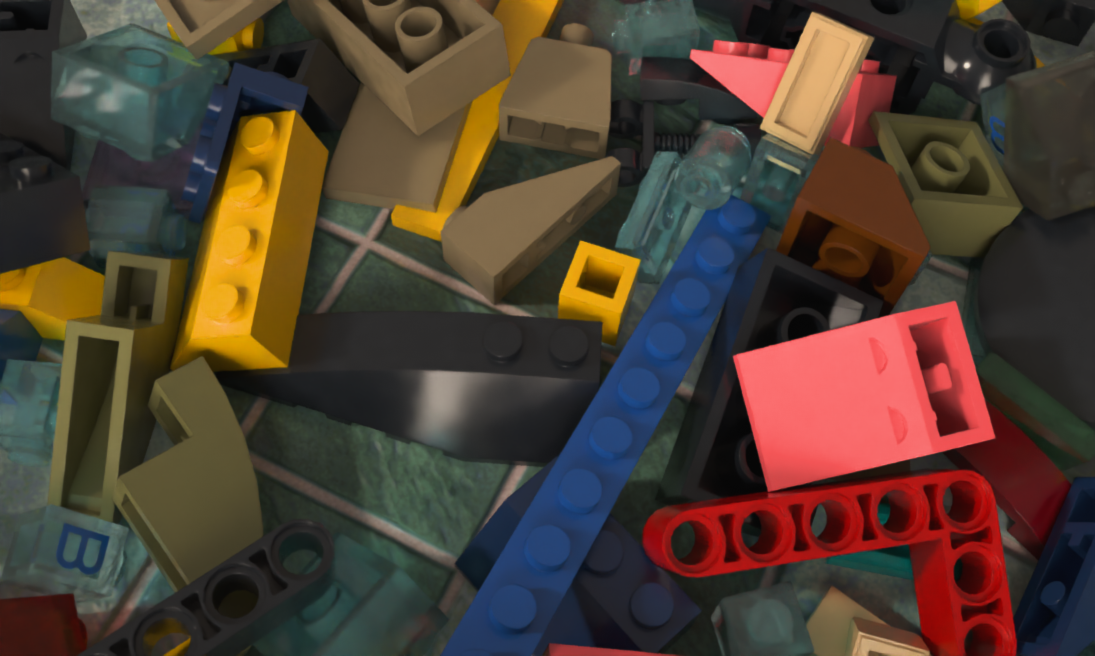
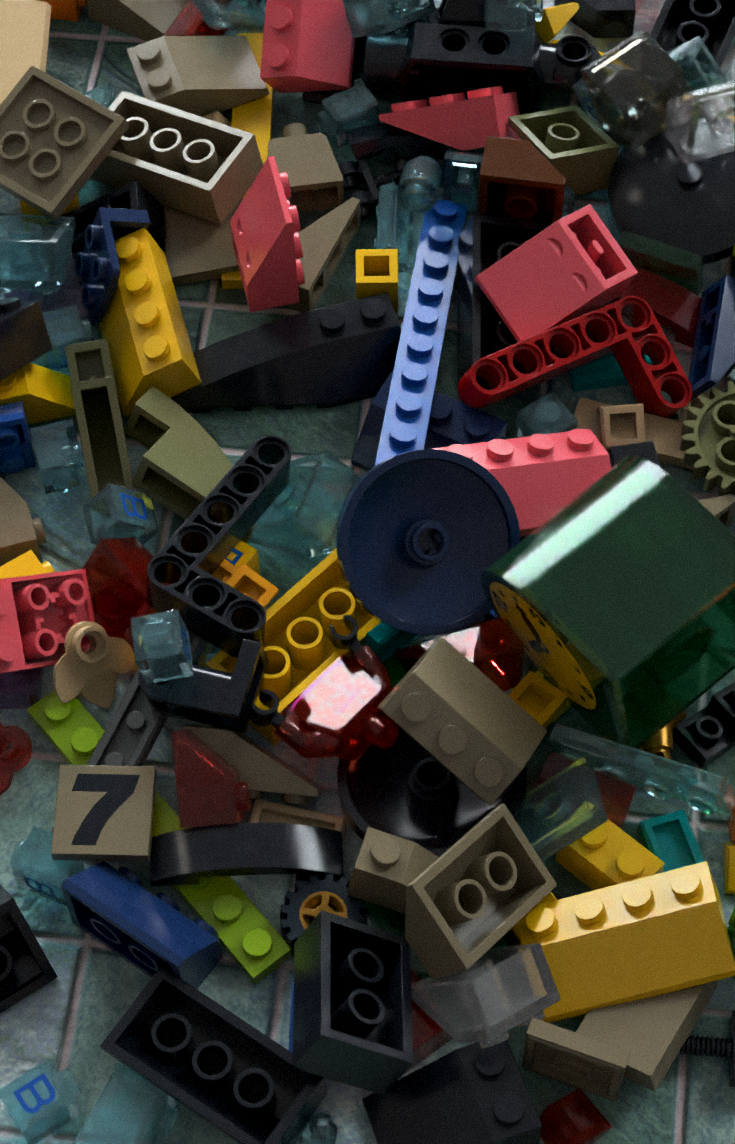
camera: 15 degrees left, 5 degrees down
(449, 193) = (267, 242): none -> coral slope
(816, 82) = (466, 109): tan tile -> none

